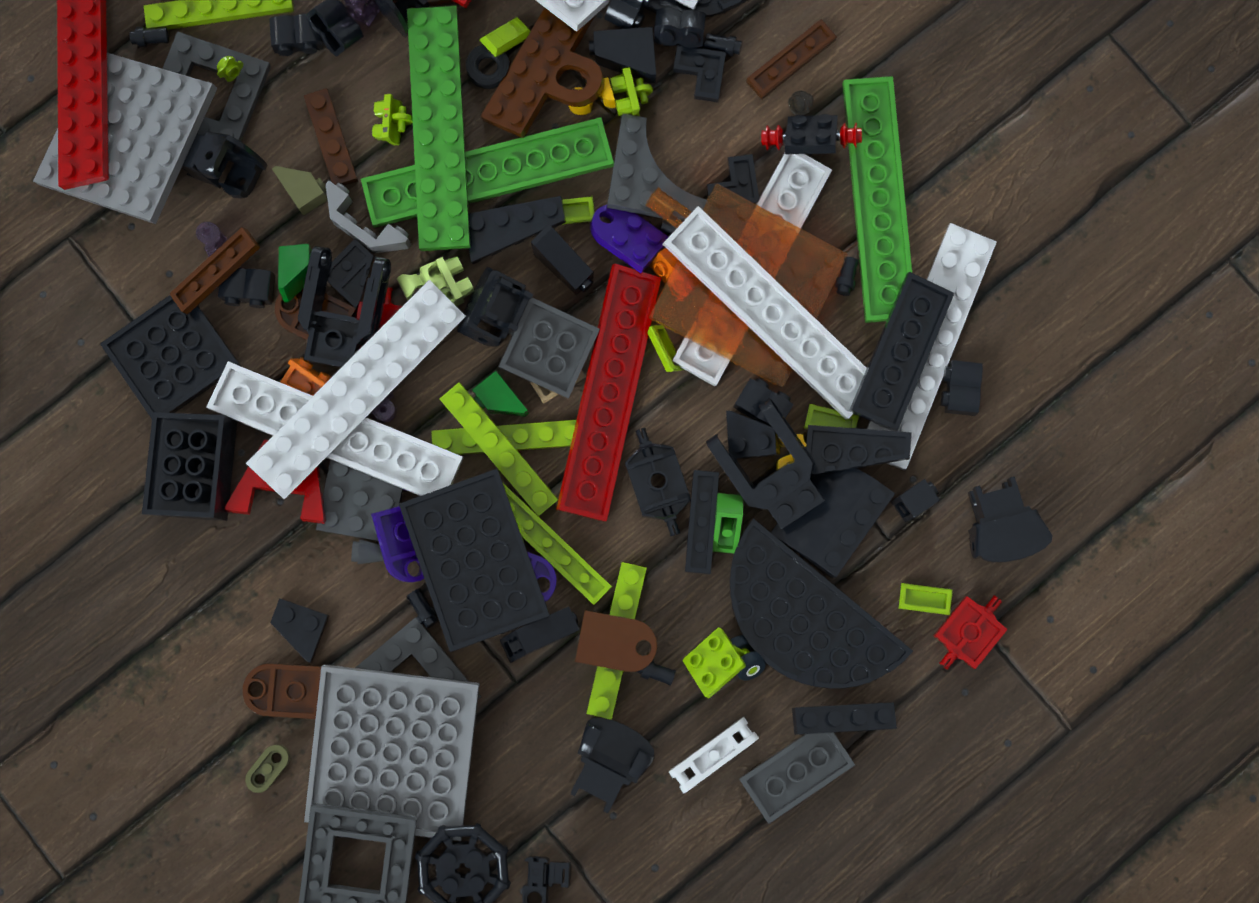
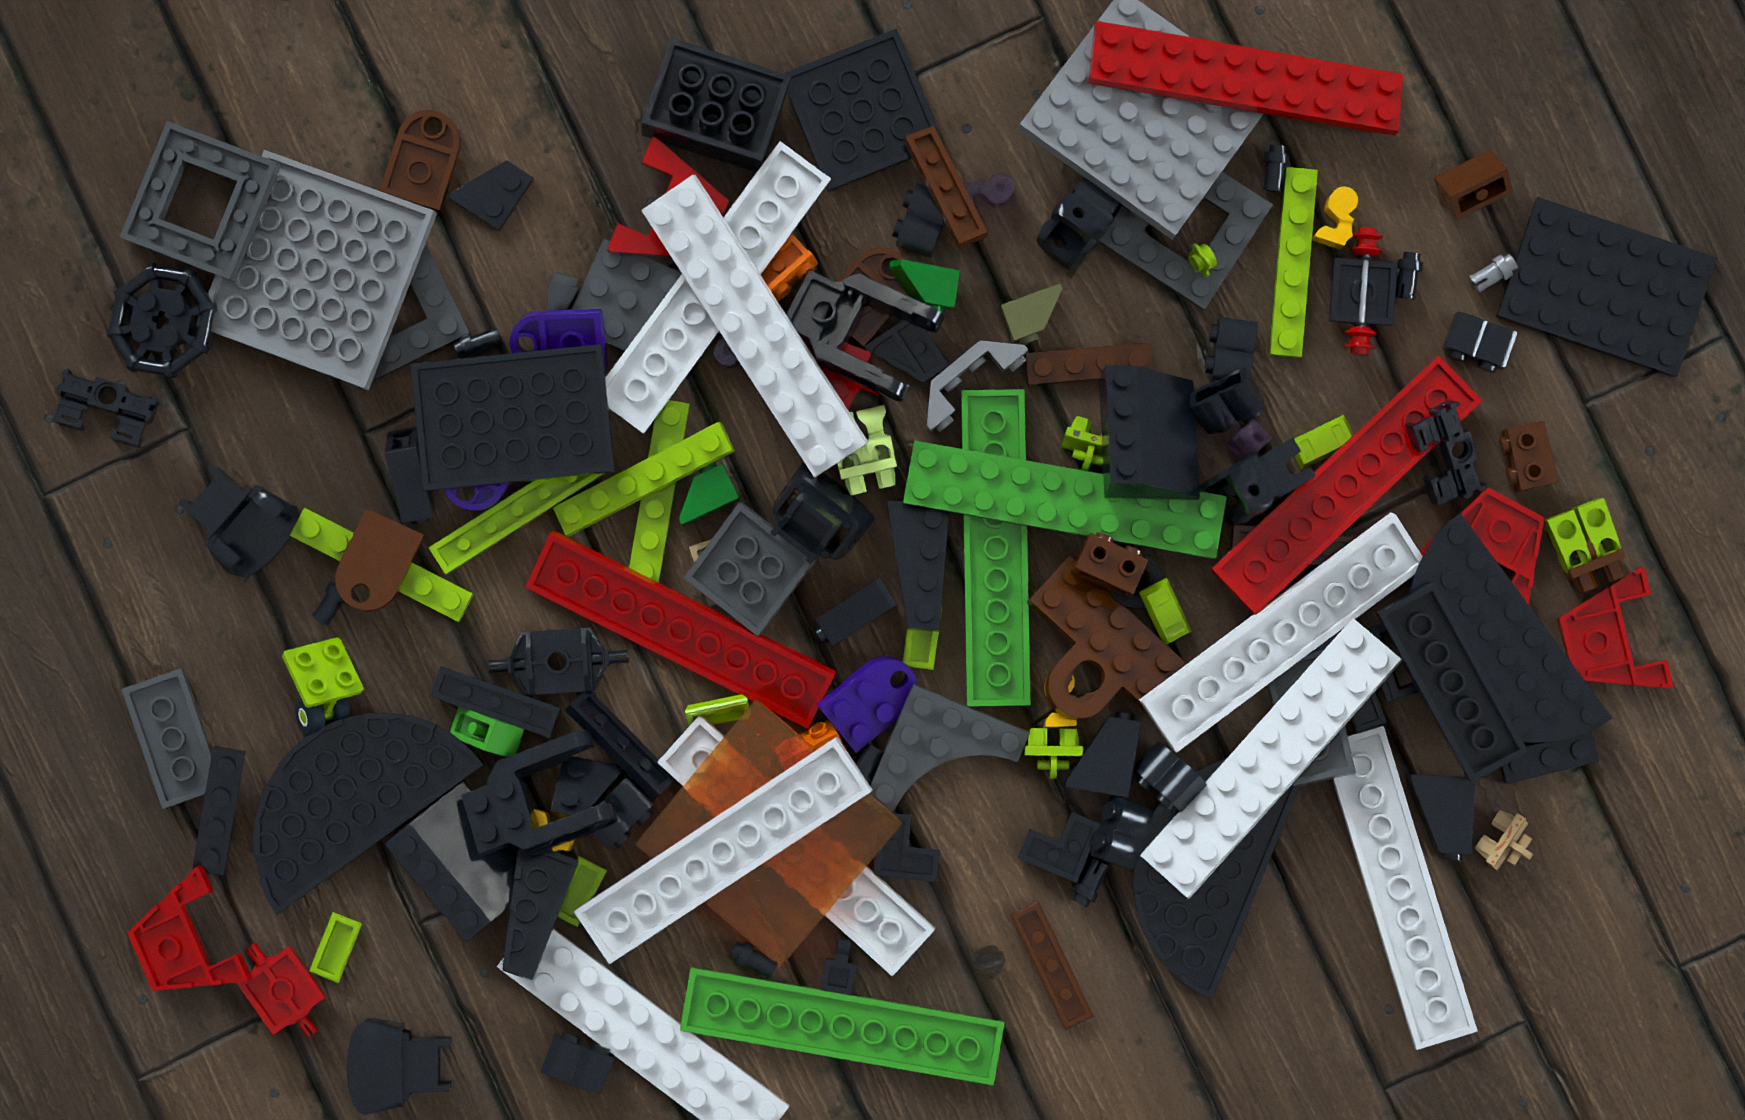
camera: 105 degrees right, 5 degrees up
(268, 767) = (337, 121): olive plate -> none
(373, 77) = (1147, 434): none -> black slope
(479, 79) = (1110, 564): none -> reddish brown brick
(665, 205) = (886, 757): clear orange hinge -> none
(709, 416) = (620, 744): none -> black plate
(713, 755) = (218, 645): white plate -> none
(811, 135) = (940, 961): black plate -> none
(840, 210) = (839, 972): none -> black plate
(901, 352) = (637, 998): black plate -> none
(916, 500) = (453, 966): black brick -> none
(963, 727) = (171, 947): none -> red wing

